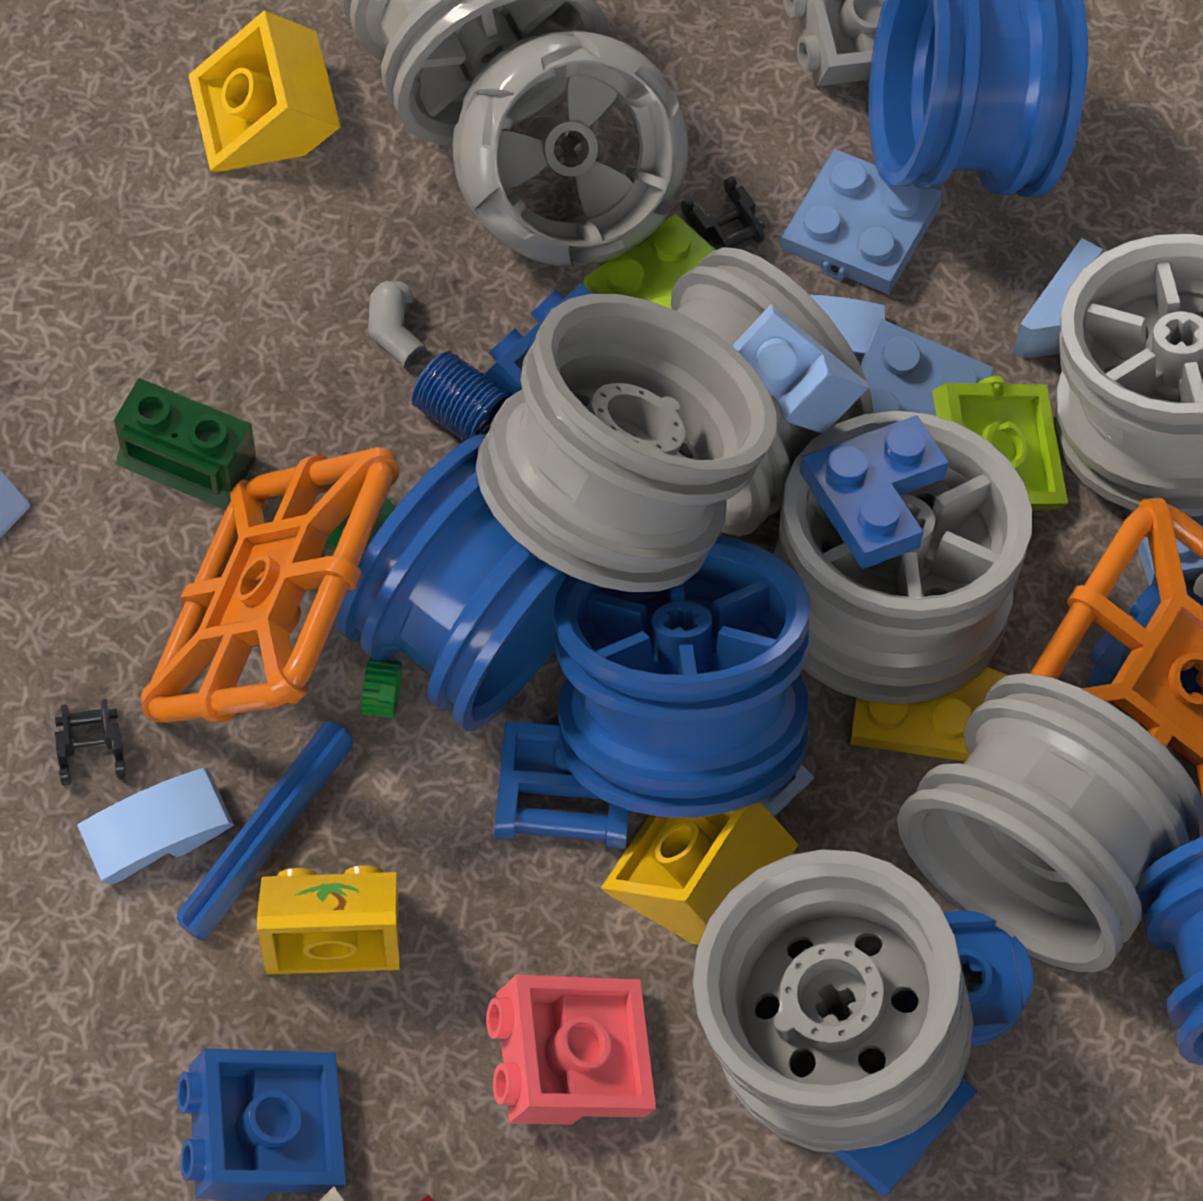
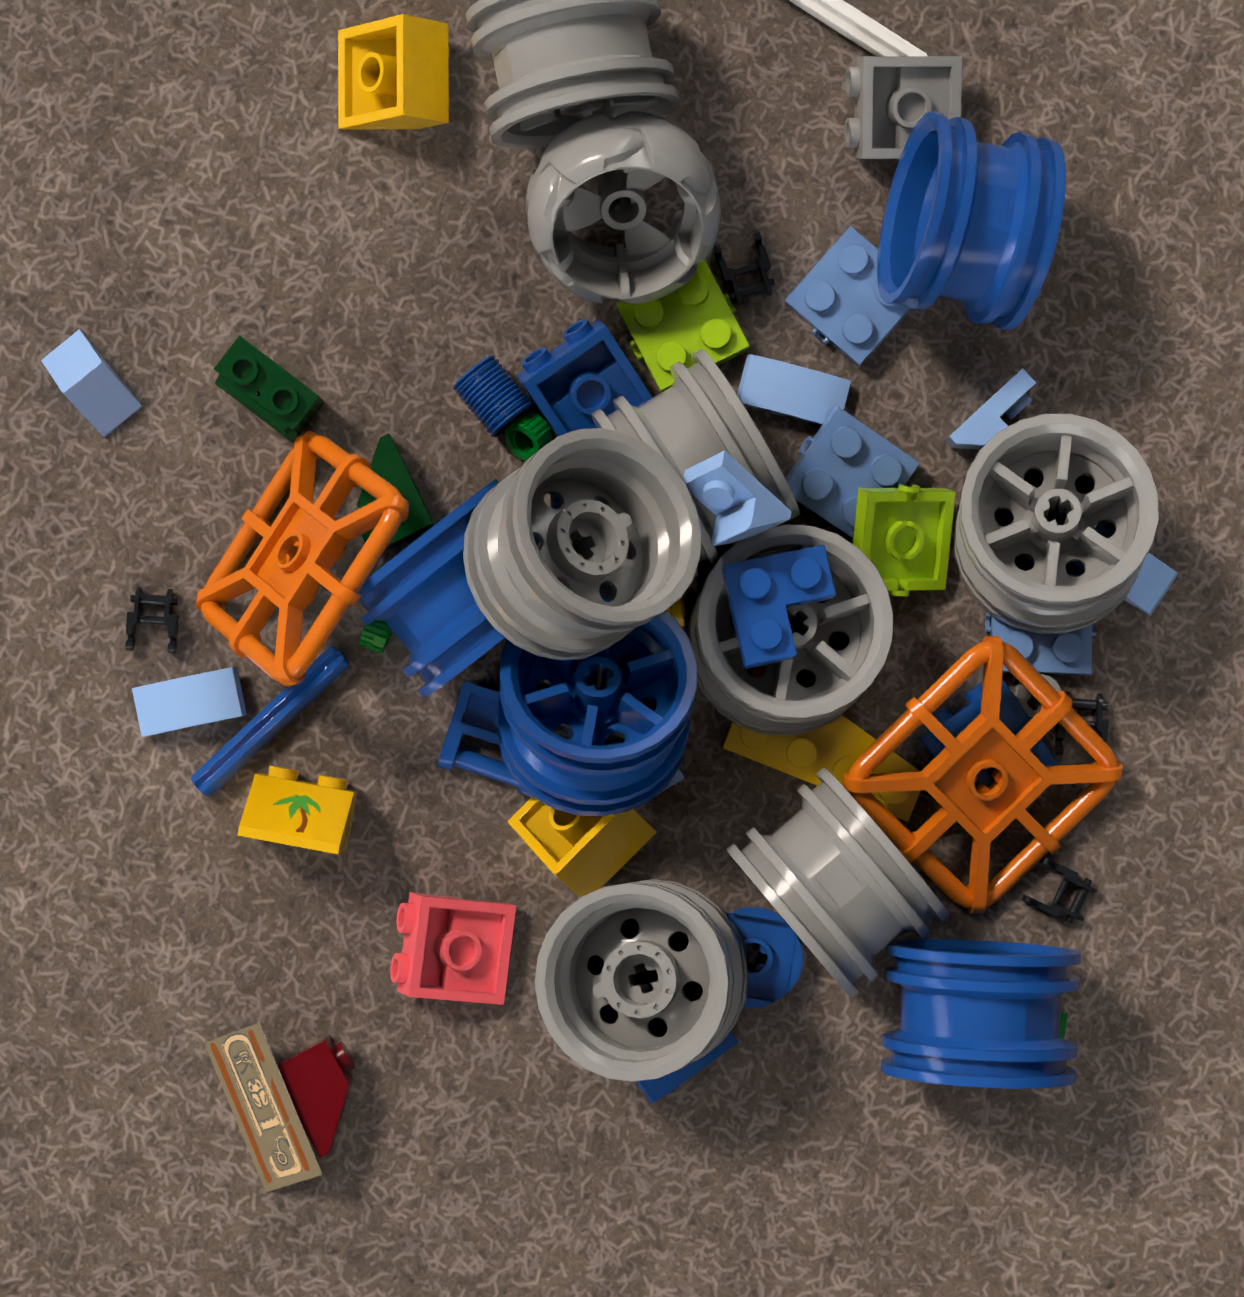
camera: 20 degrees right, 25 degrees up
(261, 1123) = (222, 953): blue plate -> none
(387, 319) = (450, 306): light grey arm -> none

